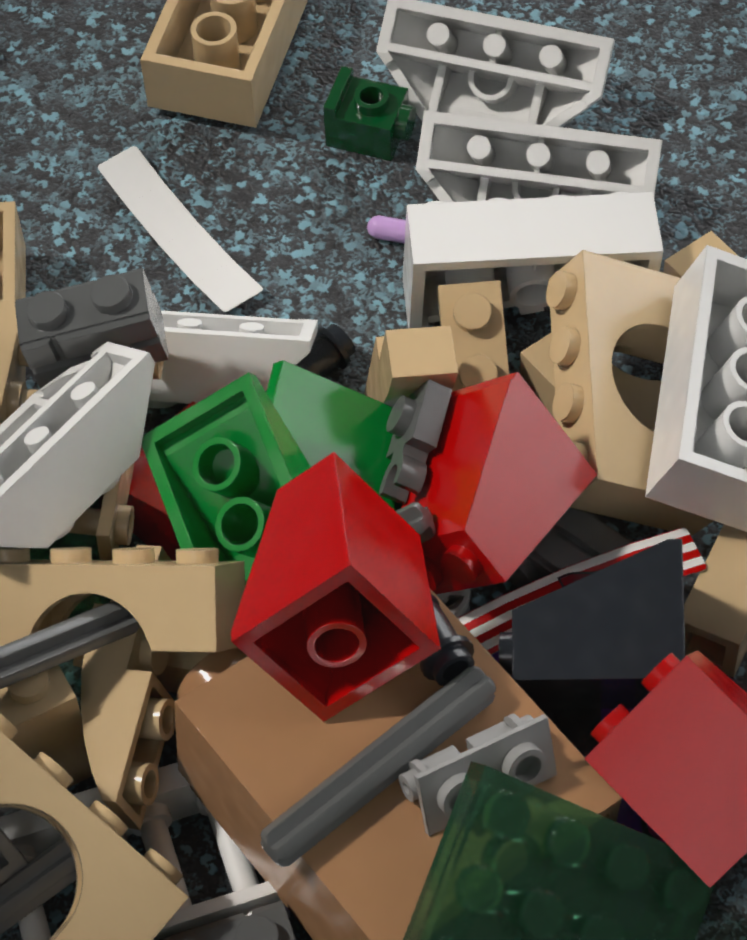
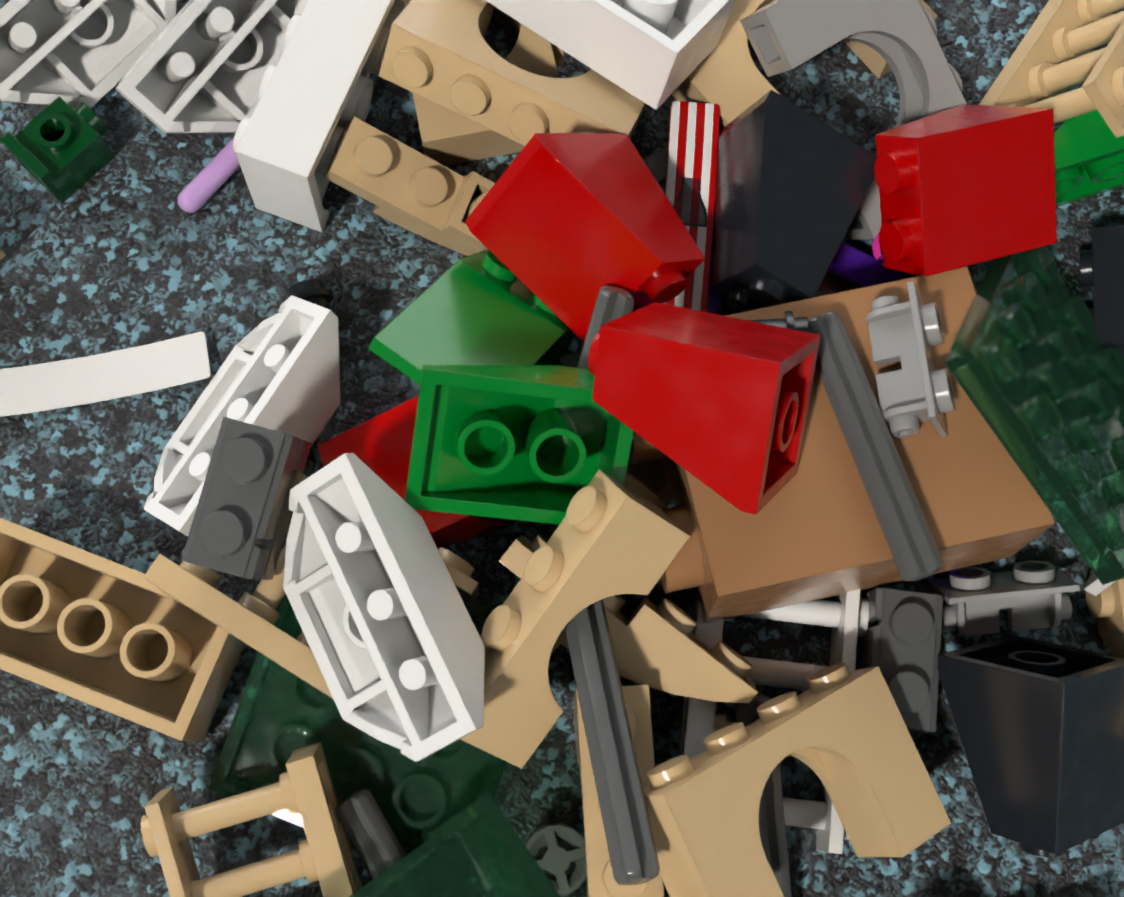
camera: 70 degrees left, 20 degrees up
(409, 358) = (421, 237): tan slope -> none
(416, 432) = (503, 264): dark grey plate -> none

